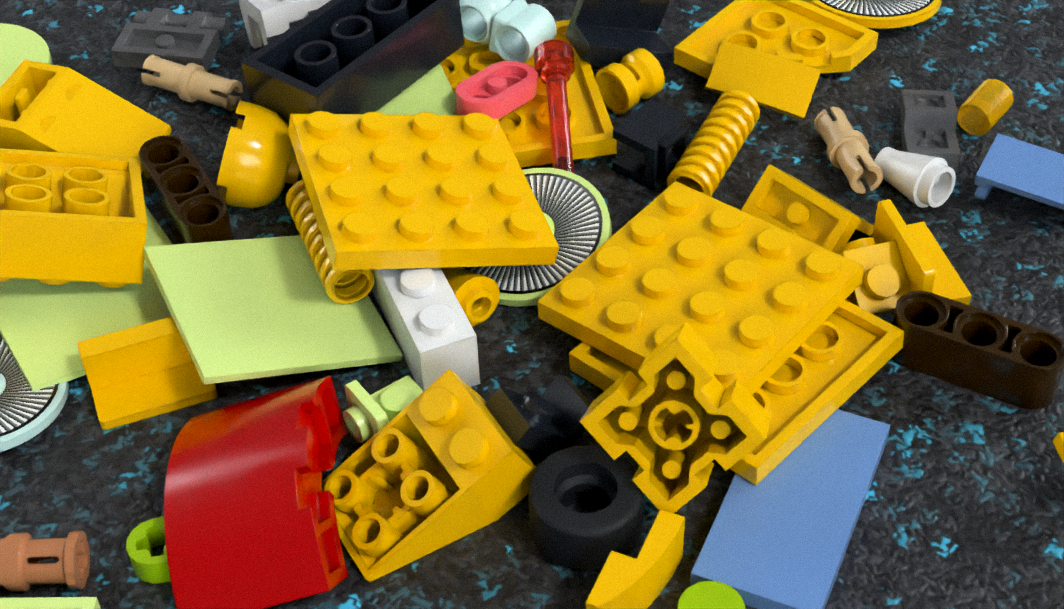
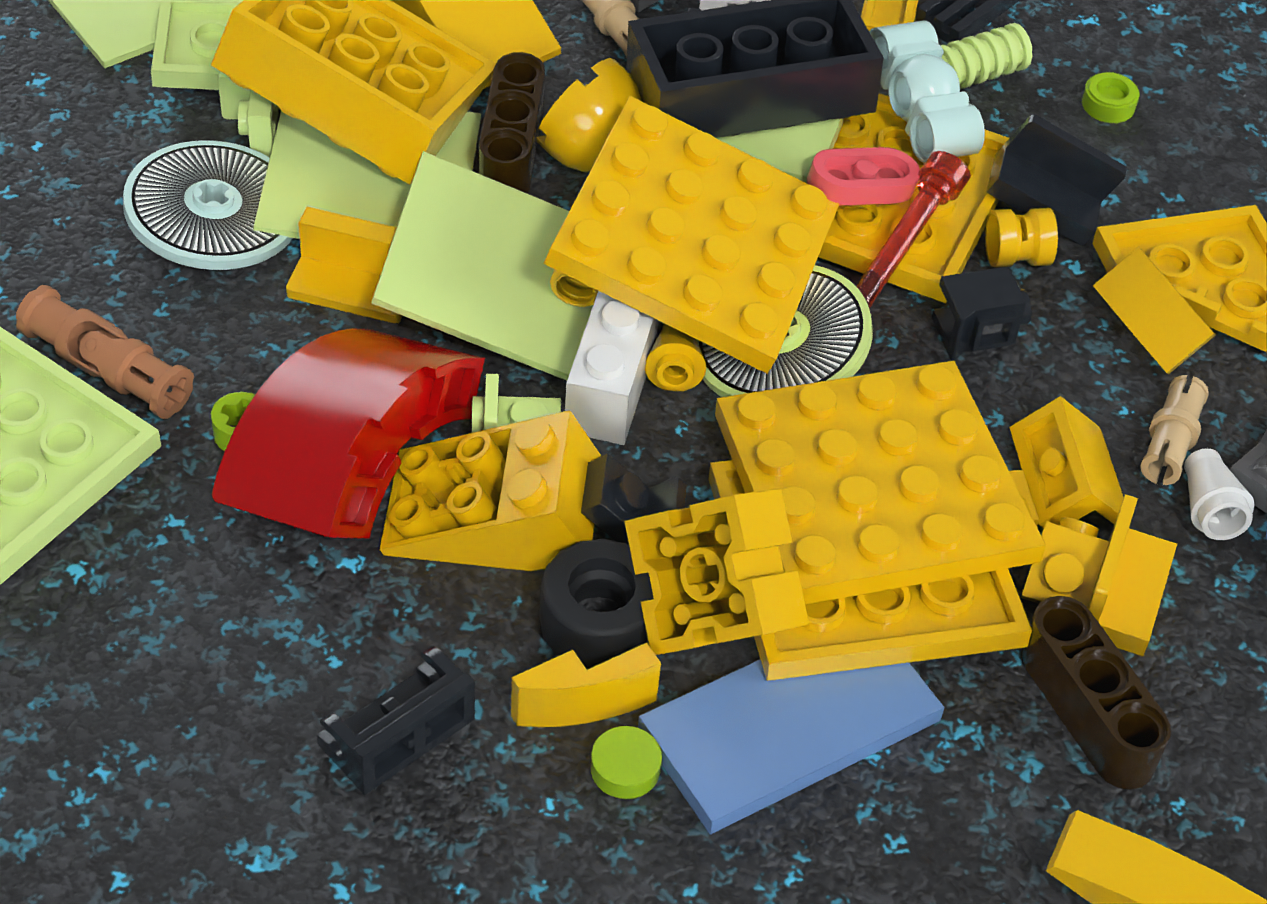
camera: 30 degrees right, 5 degrees up
(716, 142) = (1040, 350): yellow piece -> none

